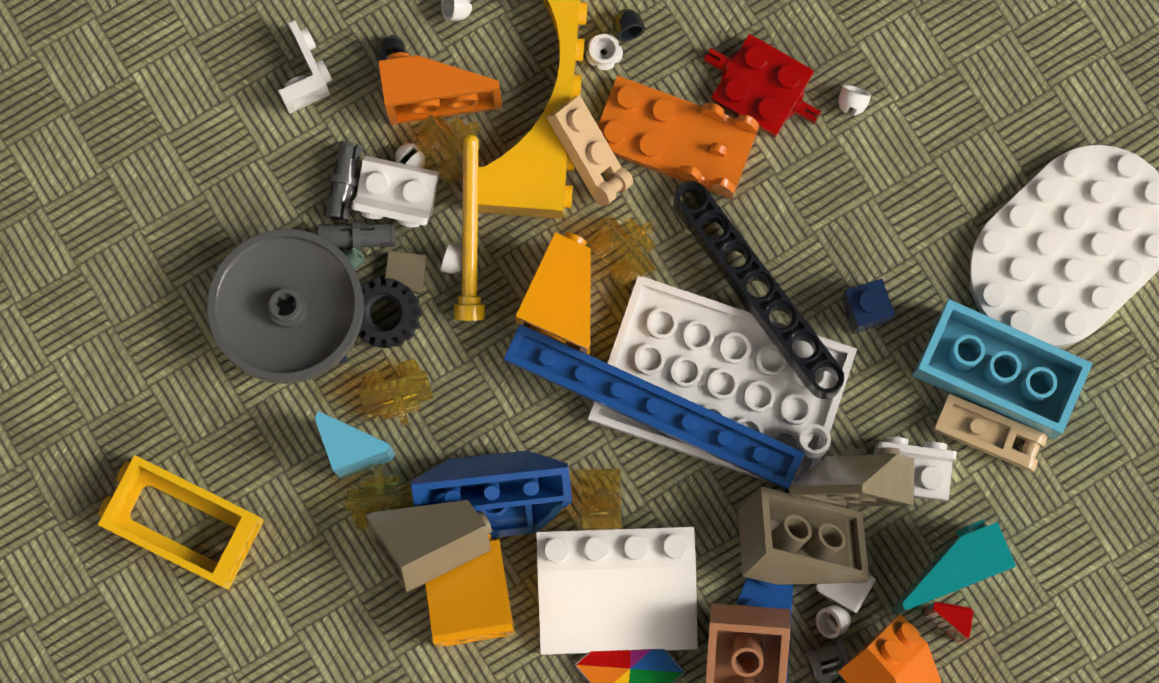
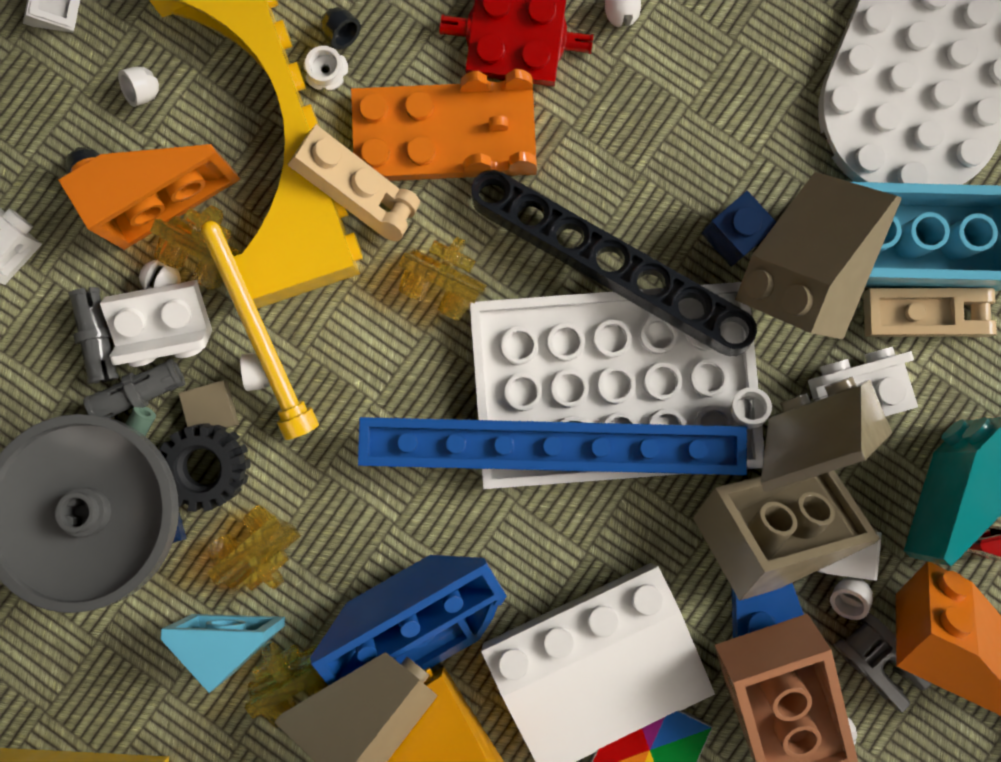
camera: 25 degrees left, 5 degrees up
(561, 293) = (391, 362): light orange slope -> none
(601, 499) = (537, 576): clear yellow slope -> none
(909, 348) = (819, 255): none -> dark tan slope

